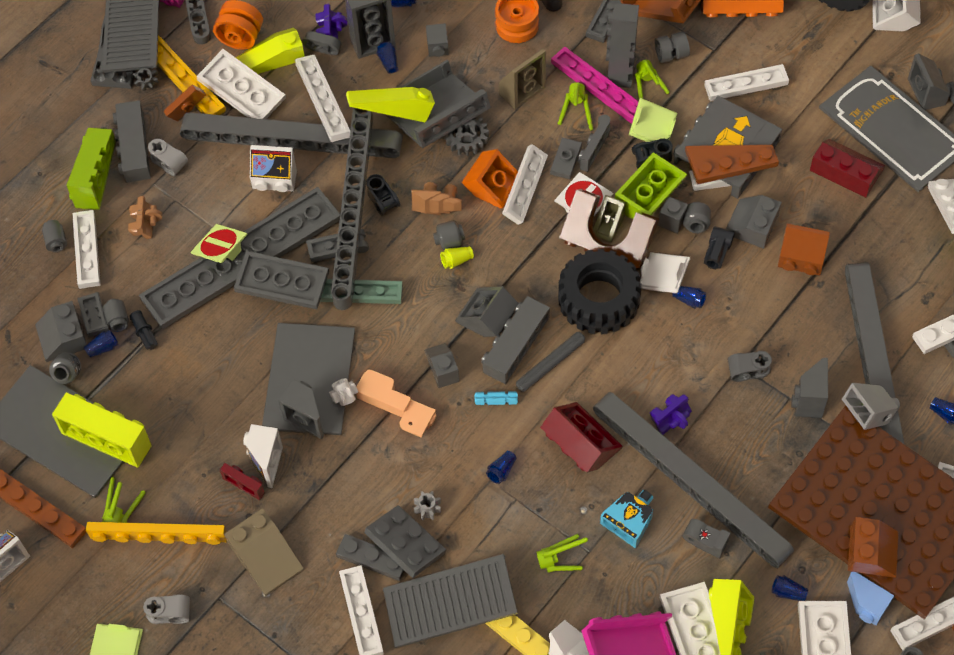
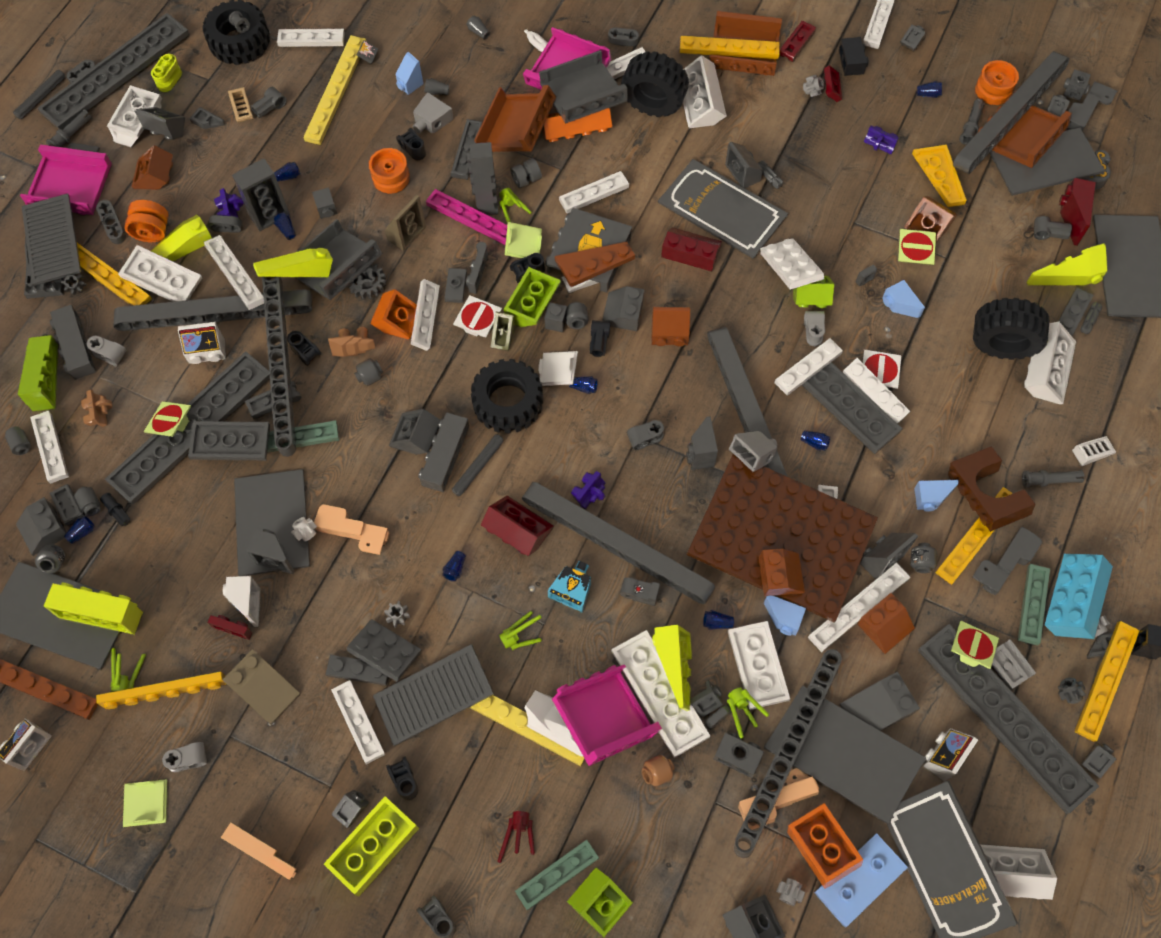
camera: 15 degrees left, 5 degrees up
(184, 103) = (112, 299): dark orange plate -> none
(442, 365) = (385, 487): dark grey slope -> none
(455, 256) = (378, 389): neon yellow cone -> none
(496, 398) = (437, 506): medium azure axle -> none
(576, 96) = (454, 229): lime plant -> none
(579, 230) = (480, 347): arch -> none

